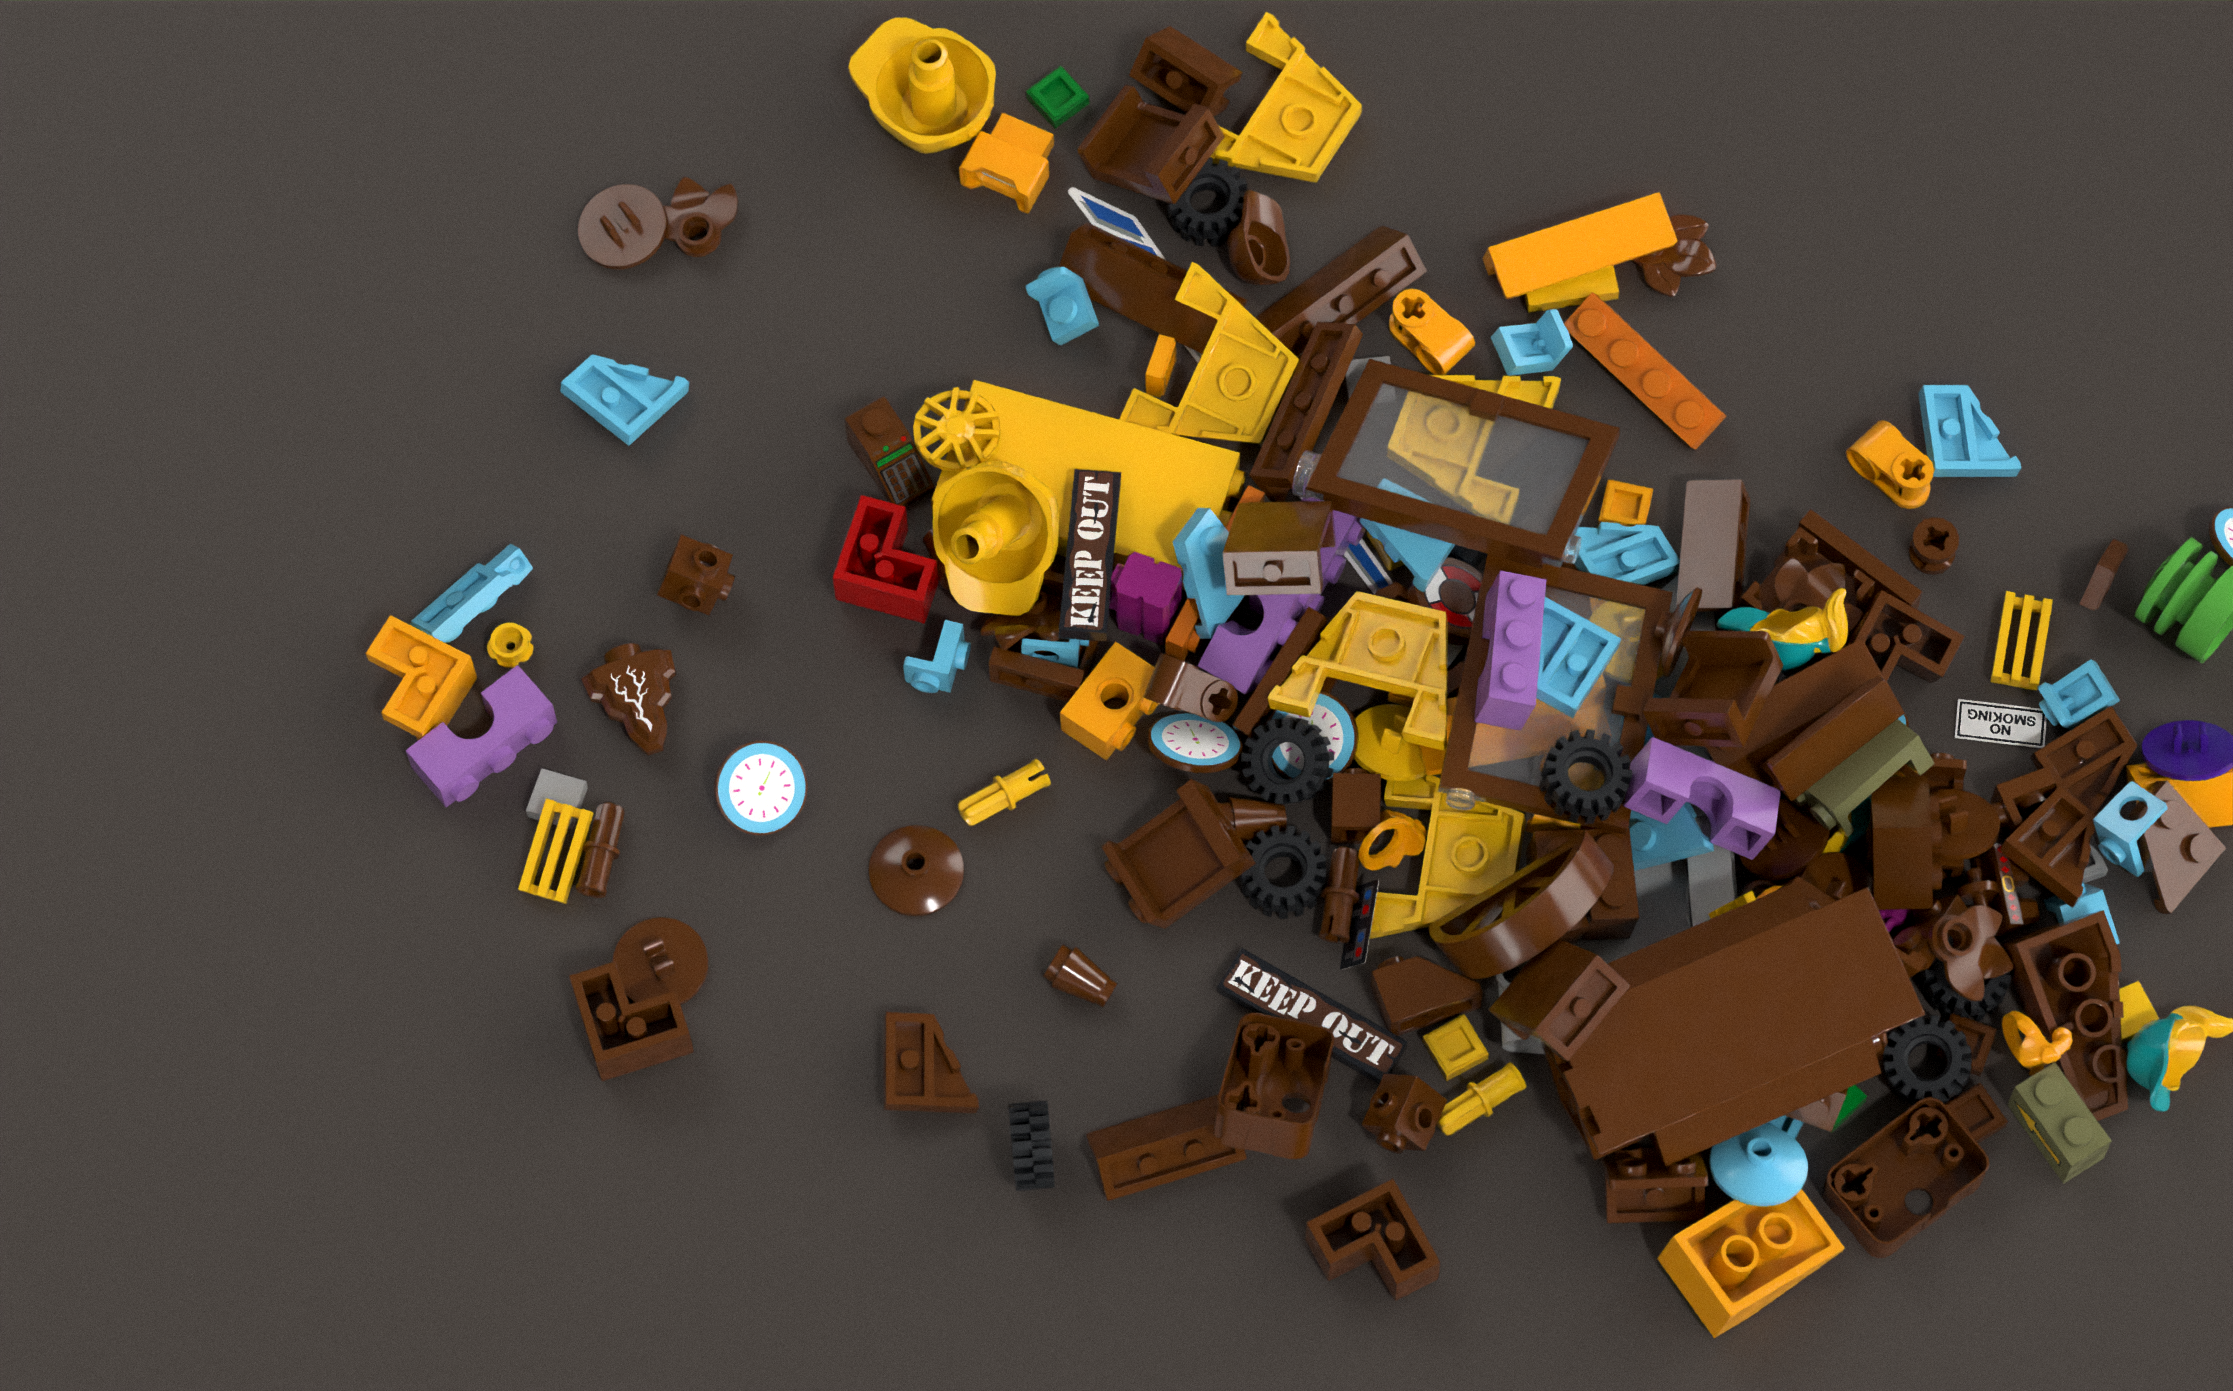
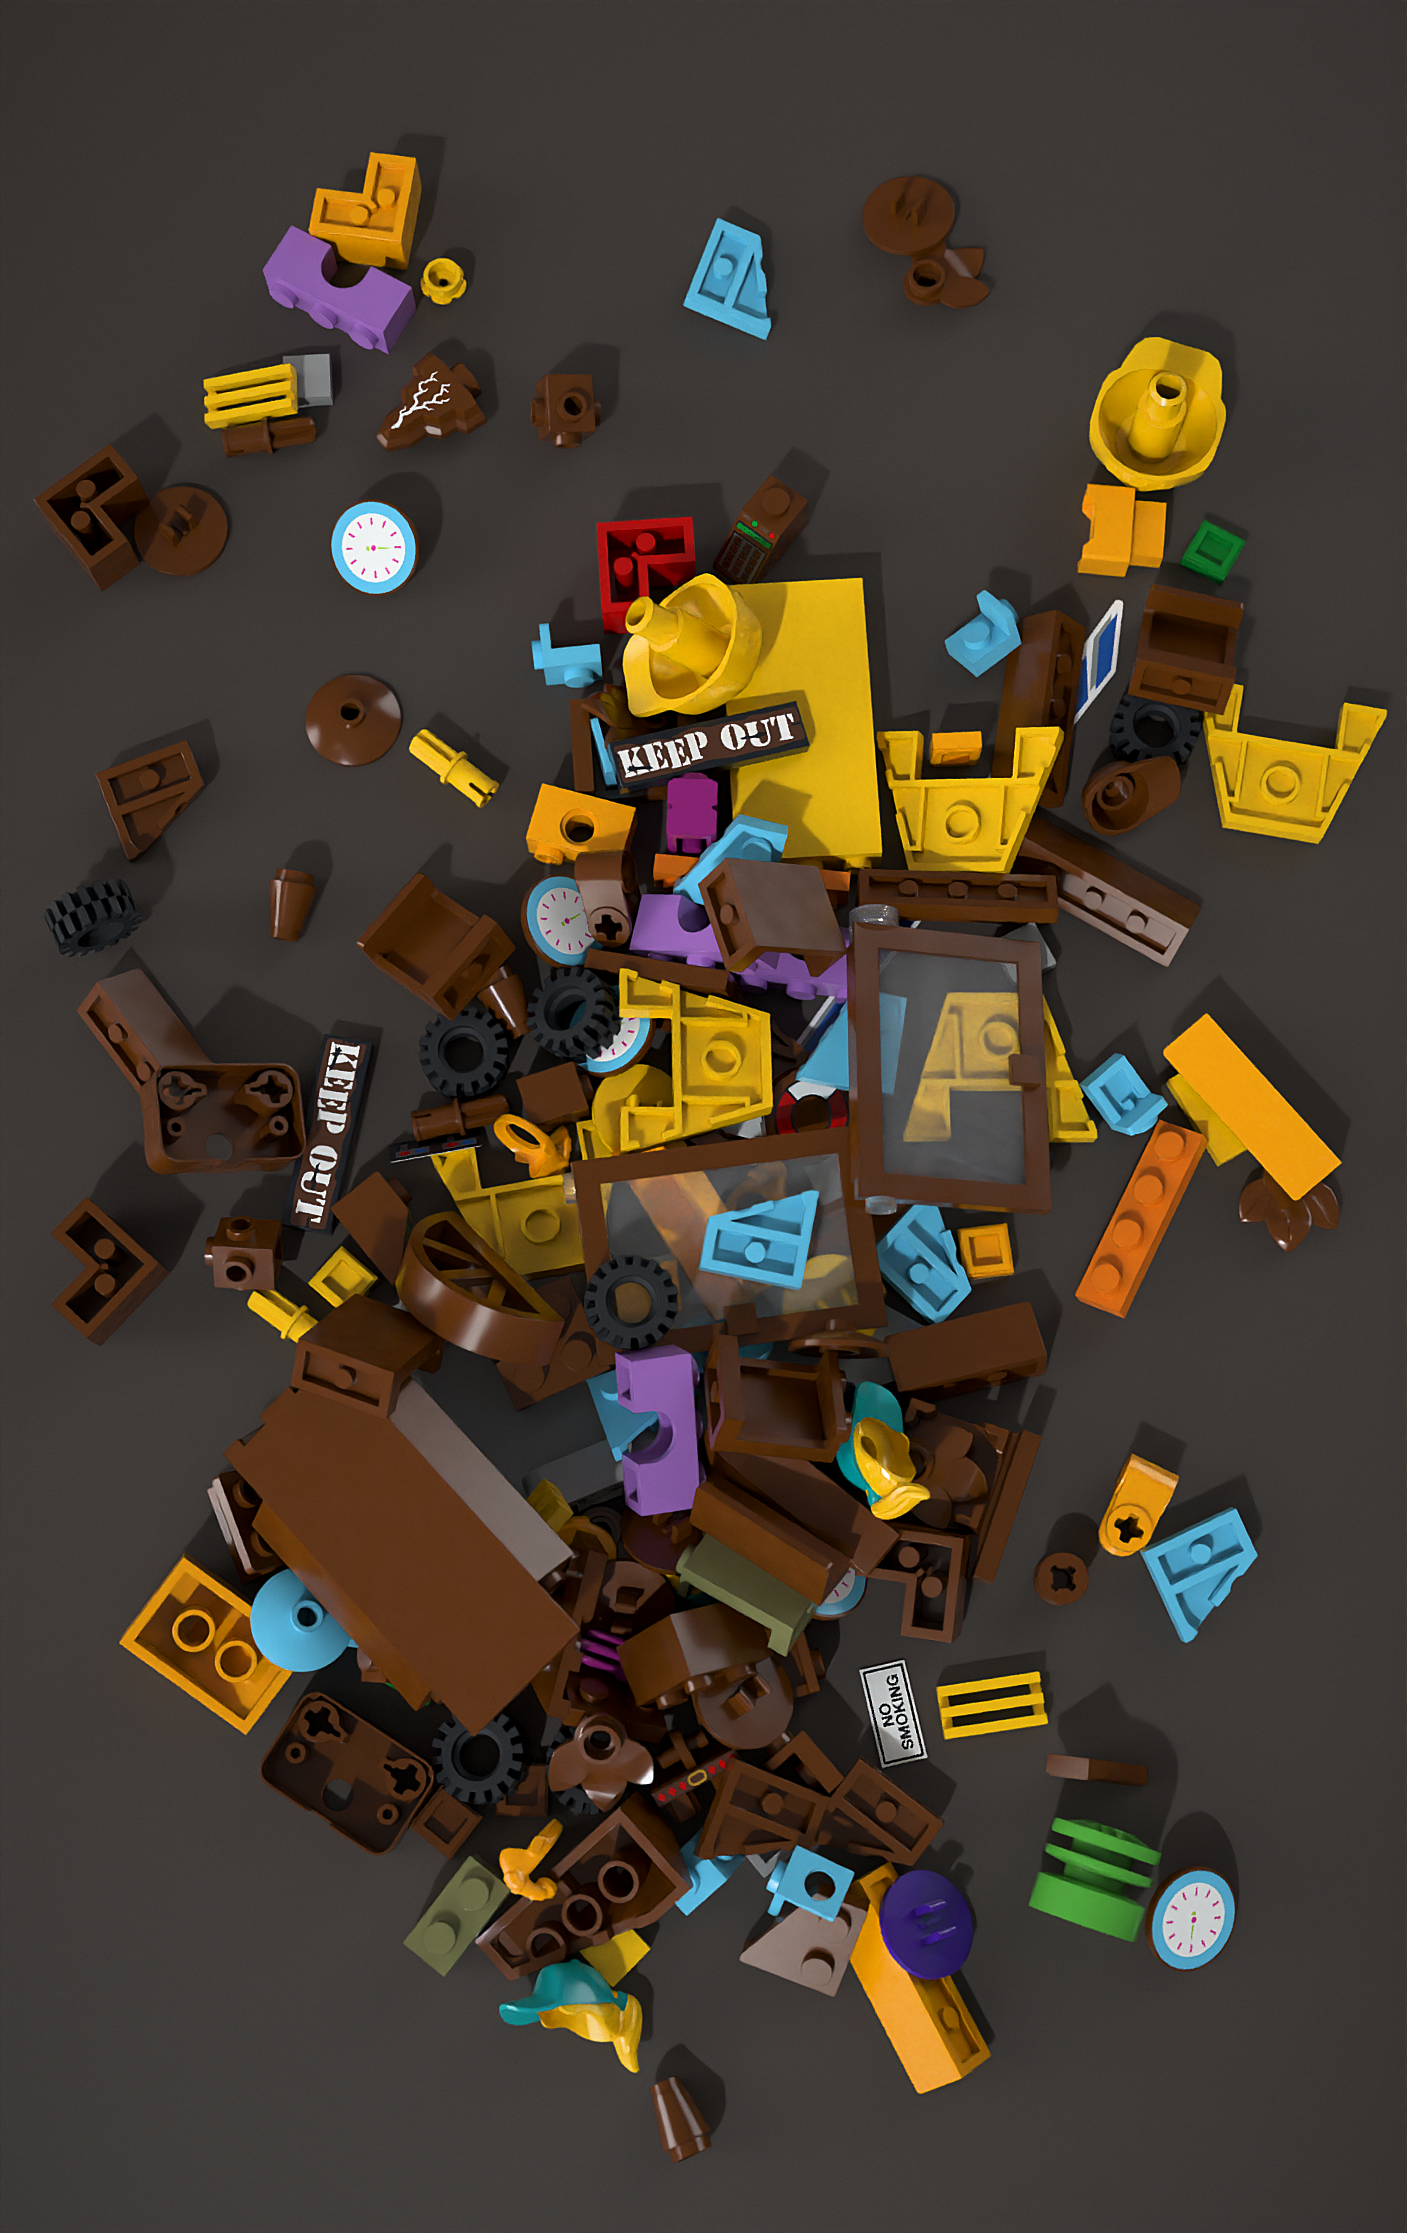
camera: 70 degrees right, 10 degrees up
(472, 594) = (477, 227): medium azure hinge -> none
(956, 429) = (798, 579): yellow wheel -> none
(1184, 71) = (1281, 655): reddish brown brick -> none
(1434, 336) = (1094, 997): light orange piece -> none
(1512, 666) = (740, 1180): medium lavender arch -> none
(2077, 696) = (944, 1783): medium azure bracket -> none

